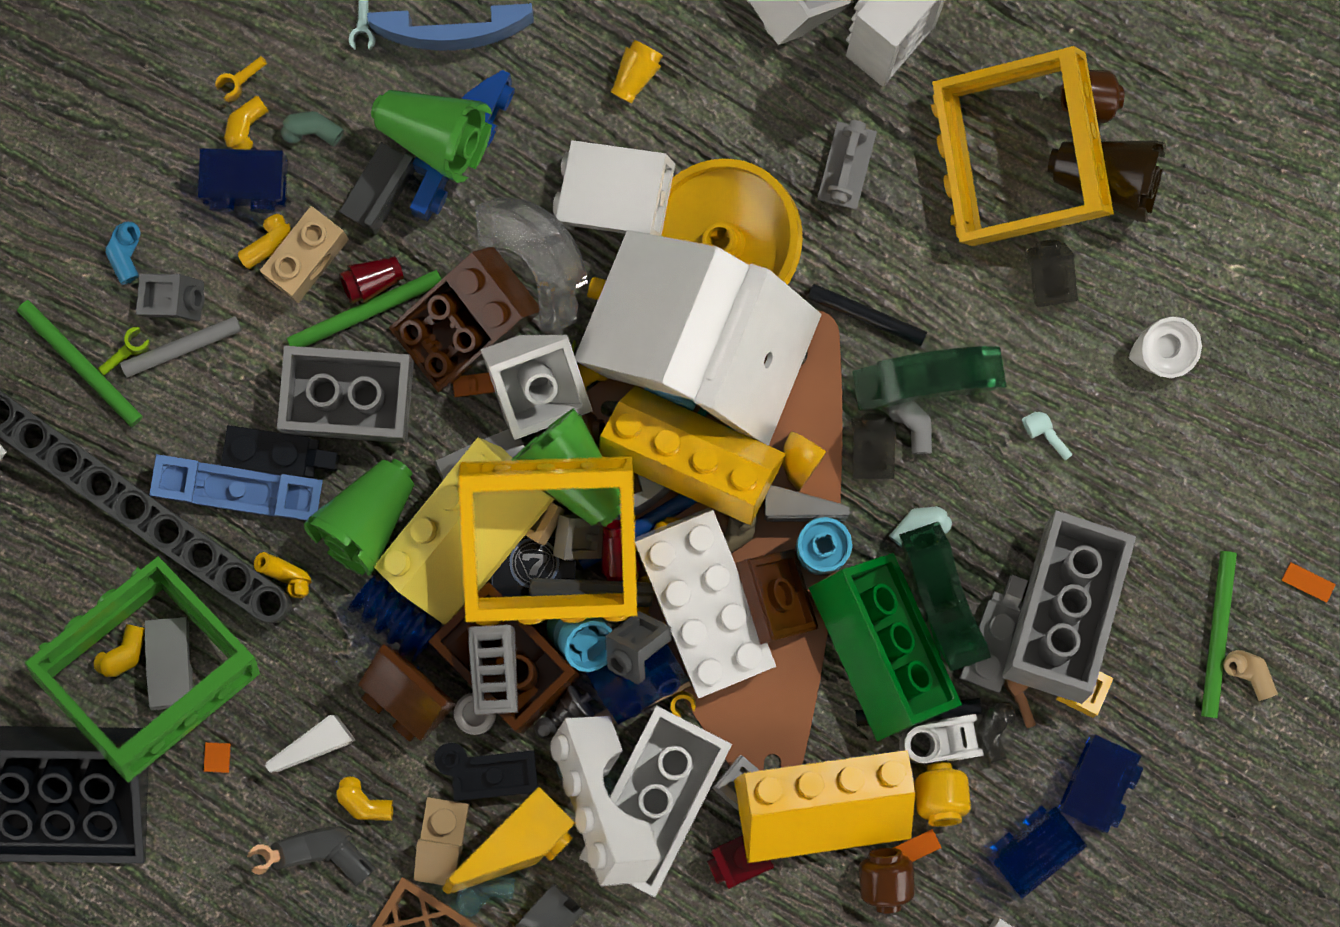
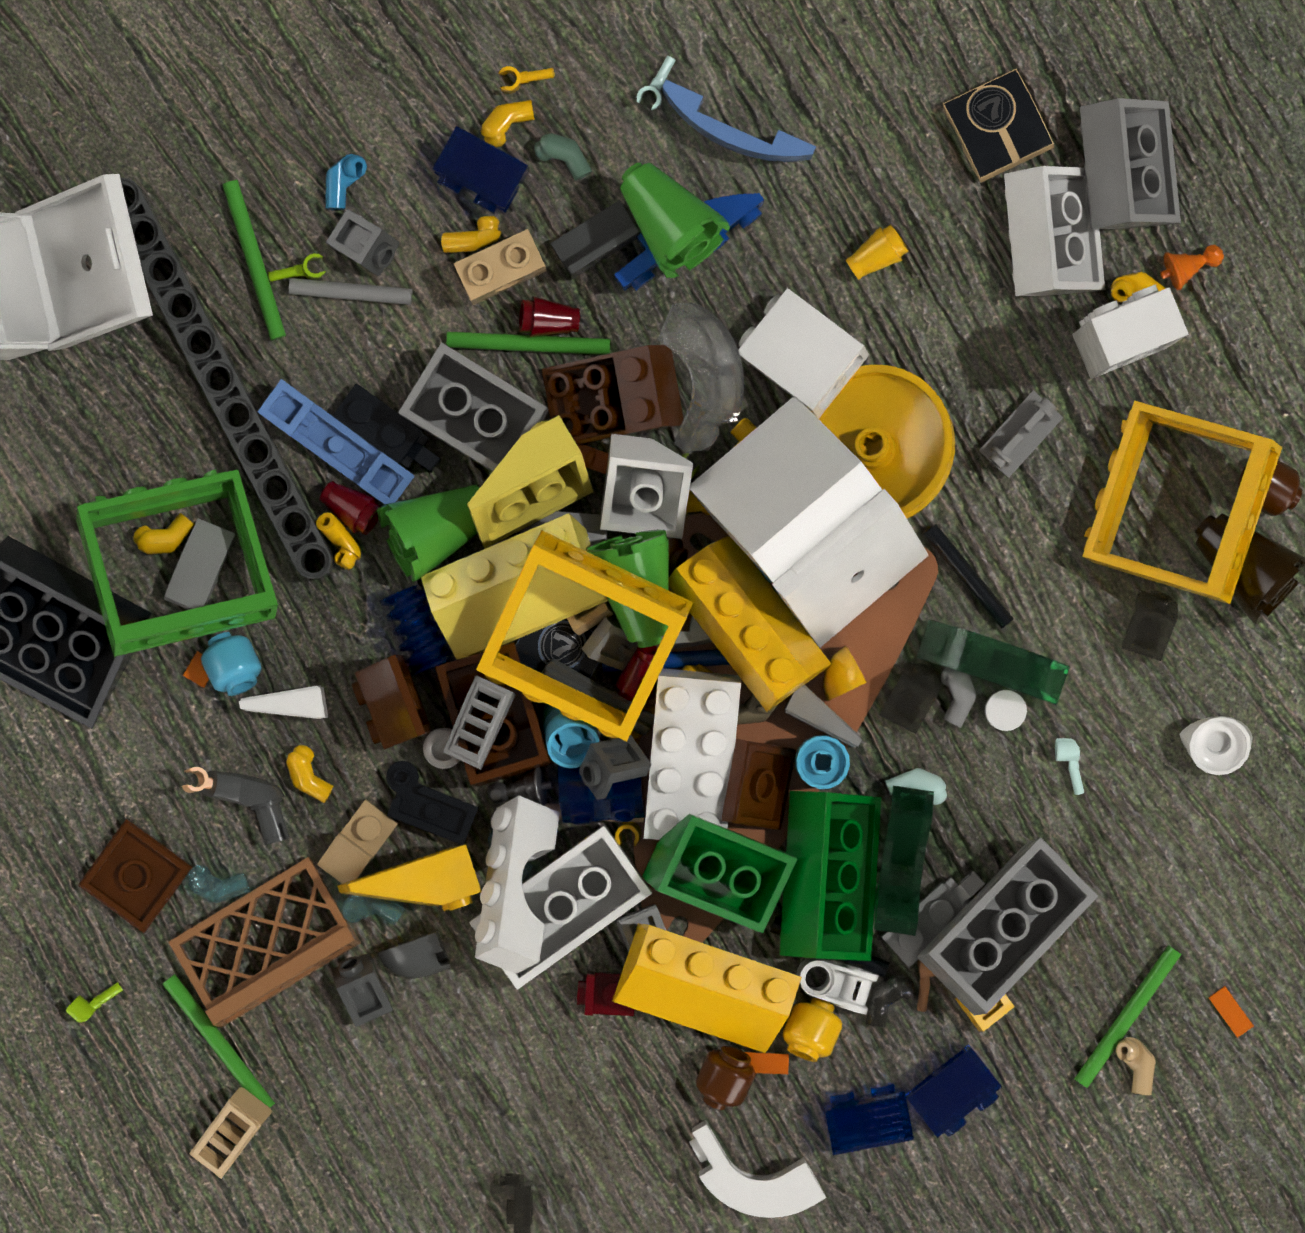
camera: 30 degrees right, 5 degrees up
(241, 736) = (231, 663): none -> medium azure head
(279, 538) = (351, 507): none -> dark red cone
(429, 429) = (530, 483): none -> light yellow slope
(783, 691) = (719, 871): none -> green slope
(963, 416) = (1005, 710): none -> white tile

